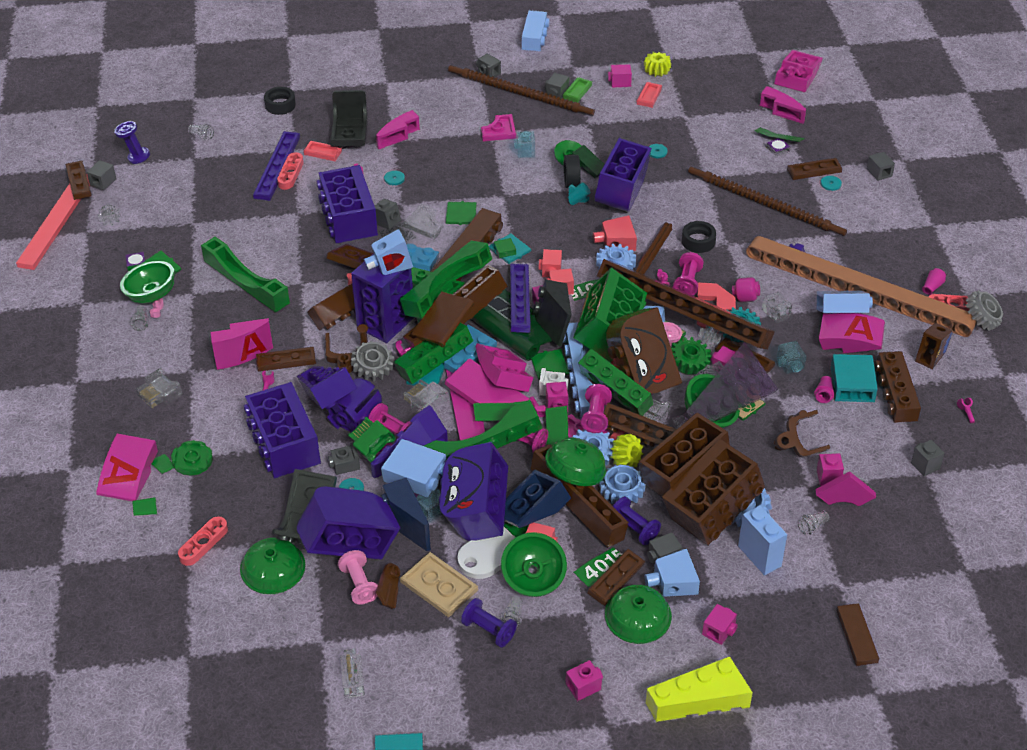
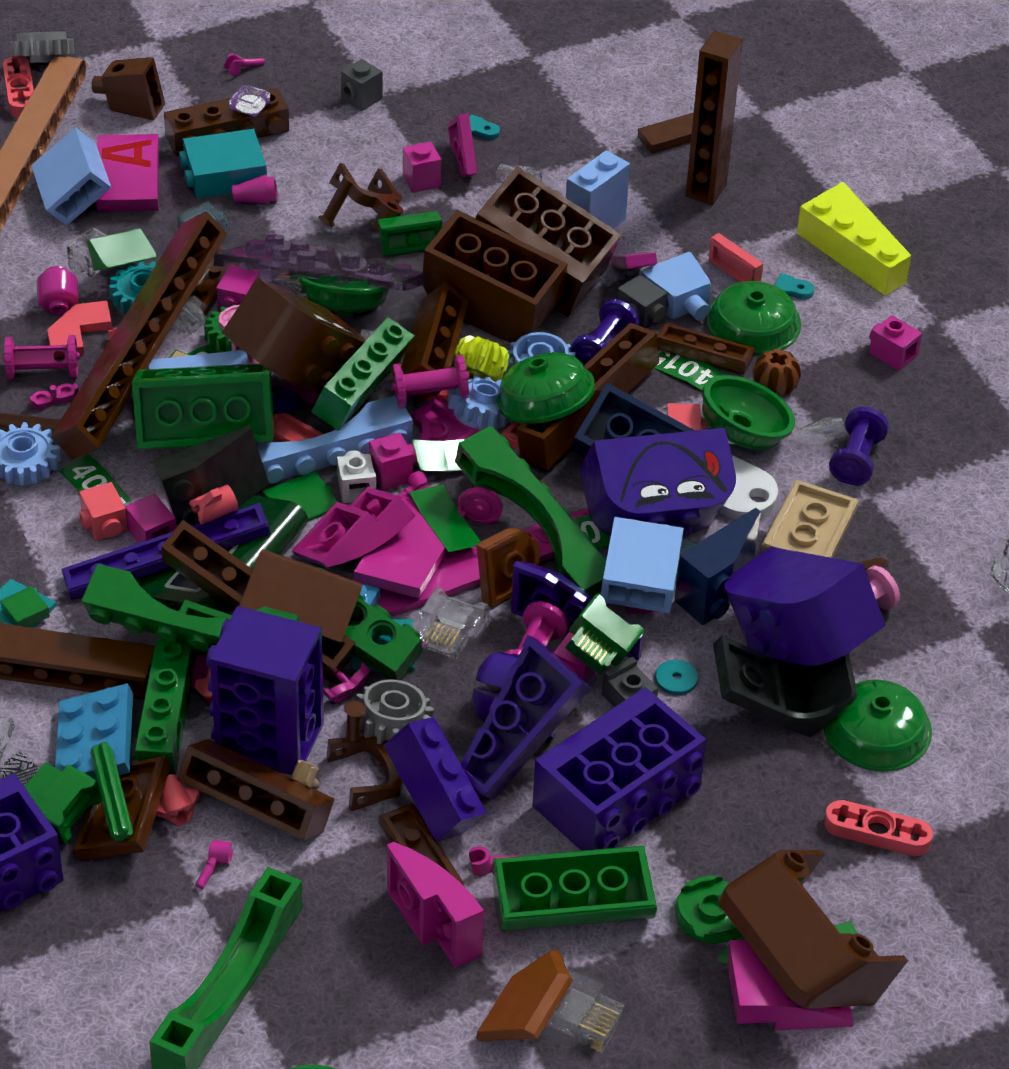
camera: 110 degrees left, 0 degrees up
(164, 447) = (799, 941): none -> reddish brown windscreen
(171, 367) = (527, 1000): none -> dark orange tile
(221, 399) = (573, 888): none -> green brick
(311, 354) = (435, 779): none -> dark purple brick
(319, 289) = (218, 852): none -> dark pink hand
(343, 319) = (306, 773): none -> tan hand
(352, 245) = (111, 792): none -> green axle
(367, 235) = (63, 796): none -> green piece
(390, 254) = (257, 607): light blue torso -> none
(452, 419) = (497, 559): none -> dark orange tile
(531, 307) = (214, 504): none -> coral piece
(551, 261) = (57, 532): coral brick -> none
(572, 601) = (777, 371): none -> dark orange piece
(668, 645) = (795, 287): none -> teal piece
(692, 614) = (734, 260): none -> coral tile
(703, 552) = (634, 260): none -> dark pink tile
(720, 624) = (741, 231): dark pink brick -> none
(765, 450) = (408, 232): none -> green slope
(768, 312) = (119, 249): none -> slope
(795, 589) = (713, 117): none -> reddish brown brick
(882, 517) = (483, 128): none -> teal piece
(899, 385) = (249, 100): none -> clear tile

